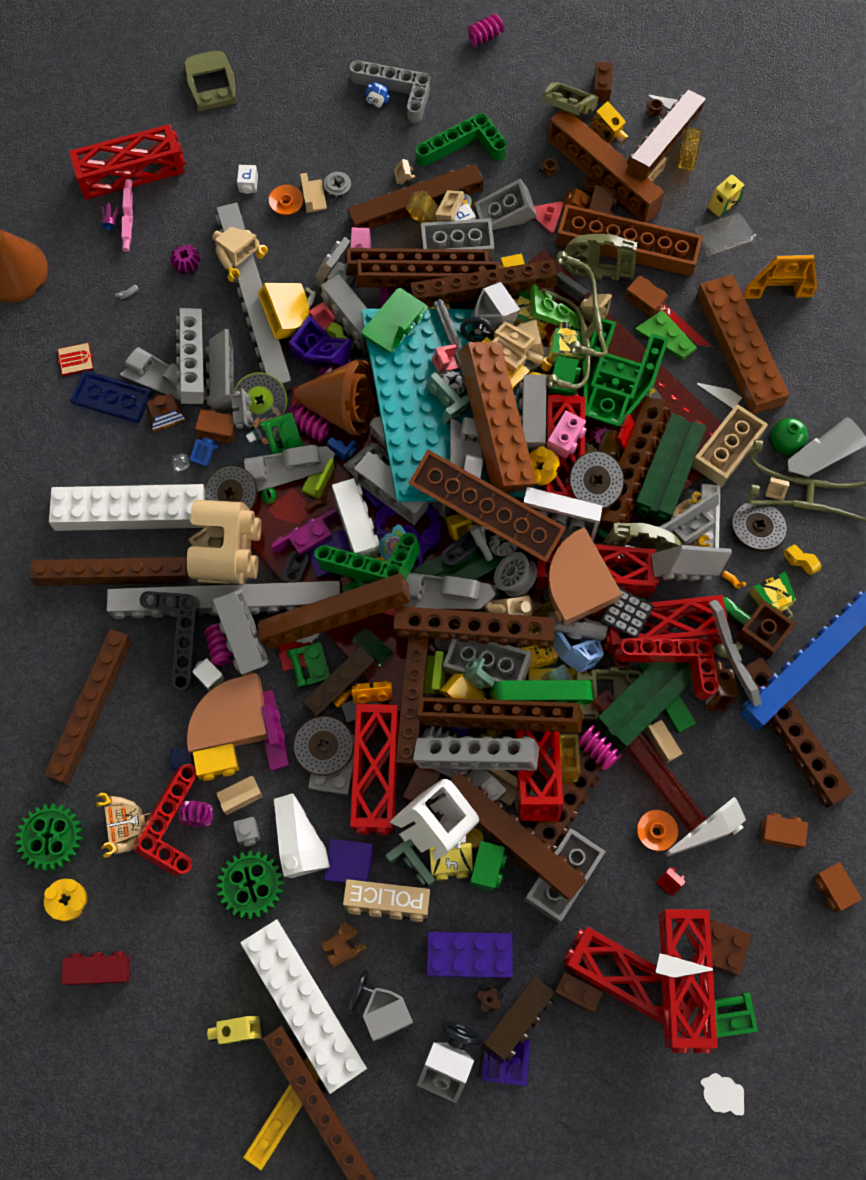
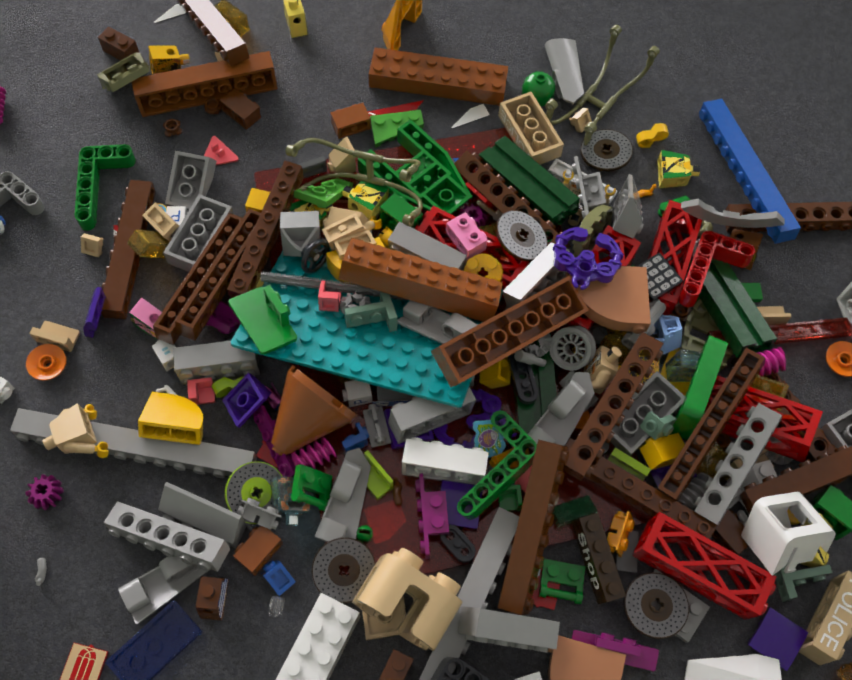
camera: 65 degrees left, 5 degrees down
(217, 646) = (501, 659): dark pink piece -> none
(306, 337) = (218, 416): dark purple slope -> none
(330, 261) = (152, 350): light grey plate -> none
(340, 178) = (56, 303): light grey gear -> none
(341, 207) = (94, 312): none -> dark purple slope
(577, 198) = (220, 123): dark orange bracket -> none
(587, 250) = (282, 133): olive slope -> none
(590, 537) = (584, 267): none -> dark purple piece
(655, 107) = (171, 22): reddish brown plate -> none
(656, 245) = (288, 105): dark orange brick -> none
(725, 233) = (326, 38): clear piece -> none
(766, 629) = (705, 185): reddish brown brick -> none

